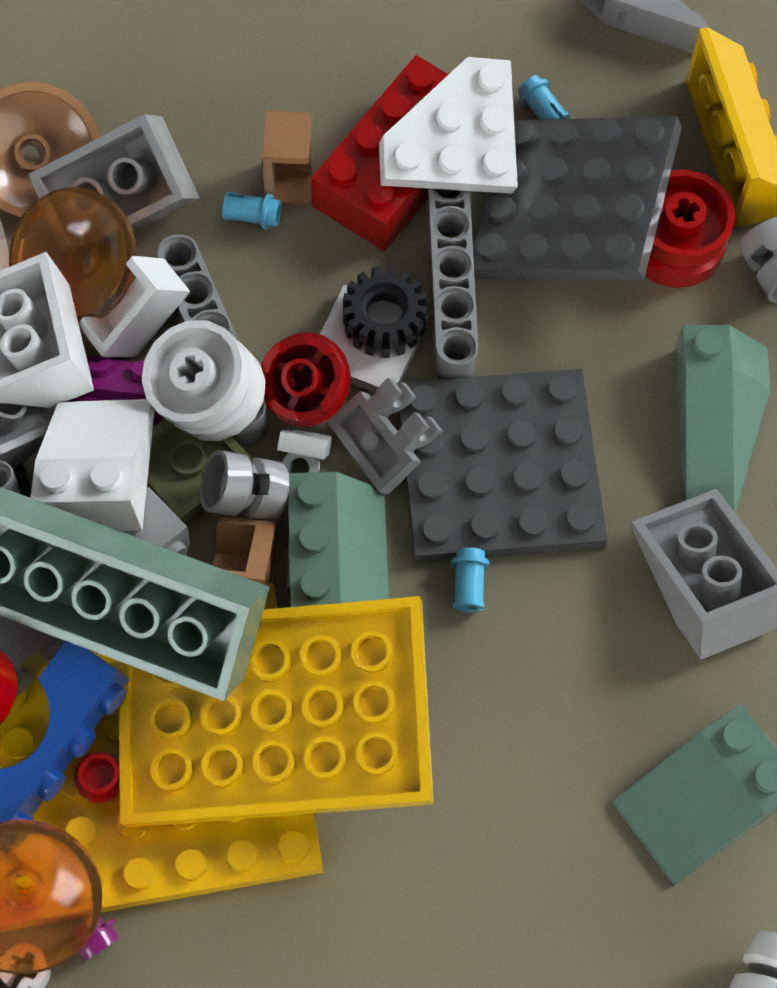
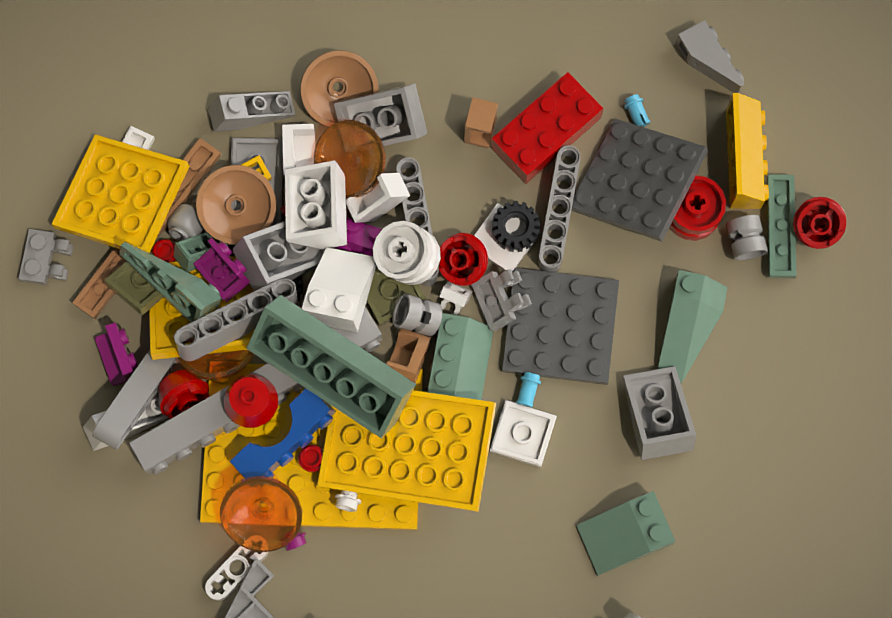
camera: 15 degrees right, 10 degrees up
(182, 841) = (347, 501): none -> white plate
(252, 209) = (456, 146): medium azure pin -> none
(457, 134) = (580, 129): white plate -> none
(478, 659) = (523, 433): none -> white tile

